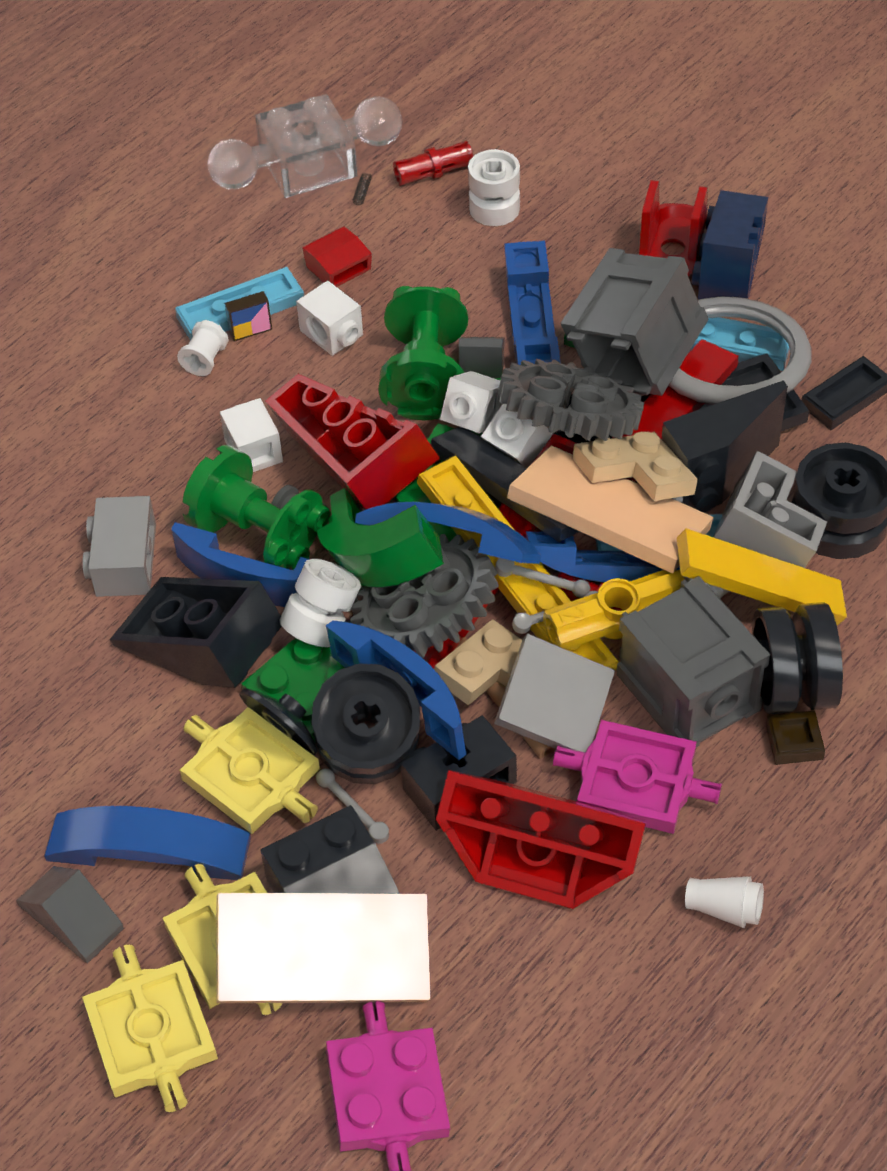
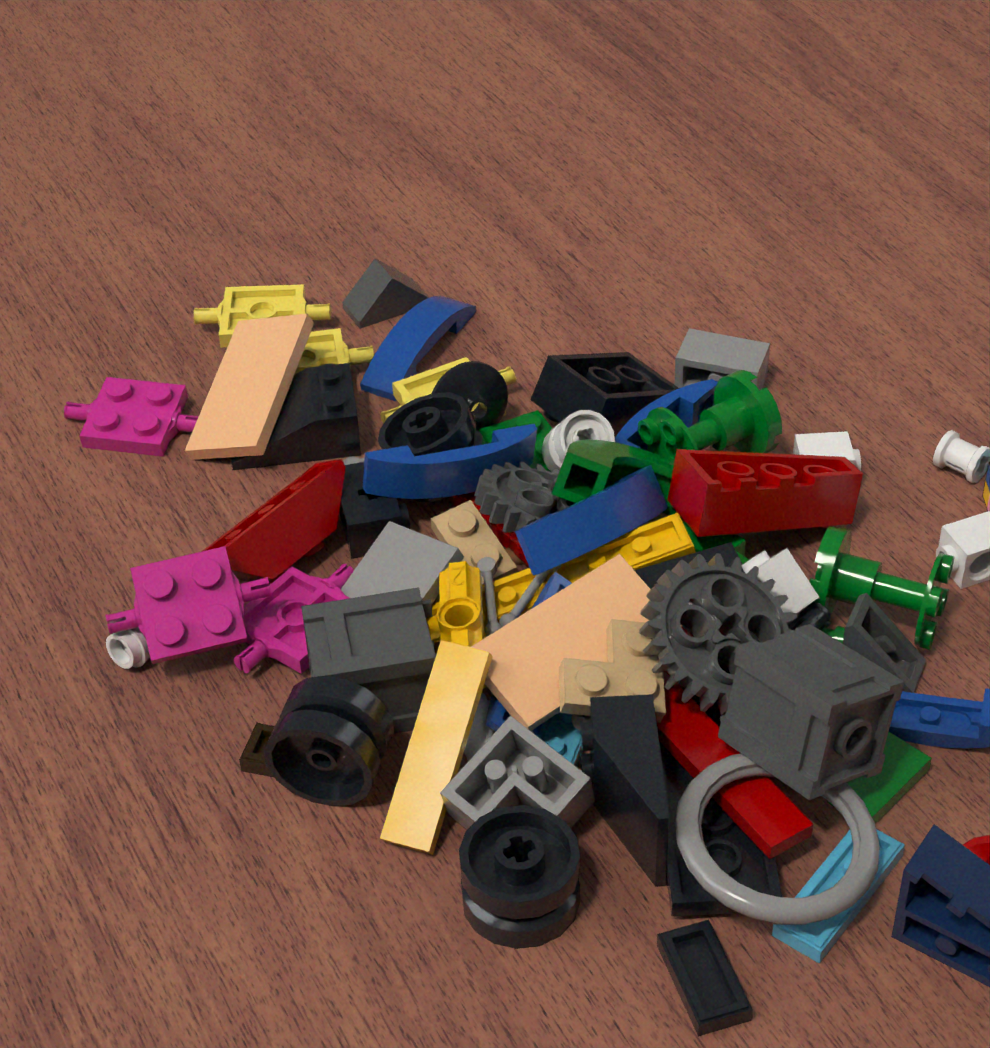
camera: 110 degrees right, 10 degrees down
(702, 833) = (188, 605): none -> dark pink plate

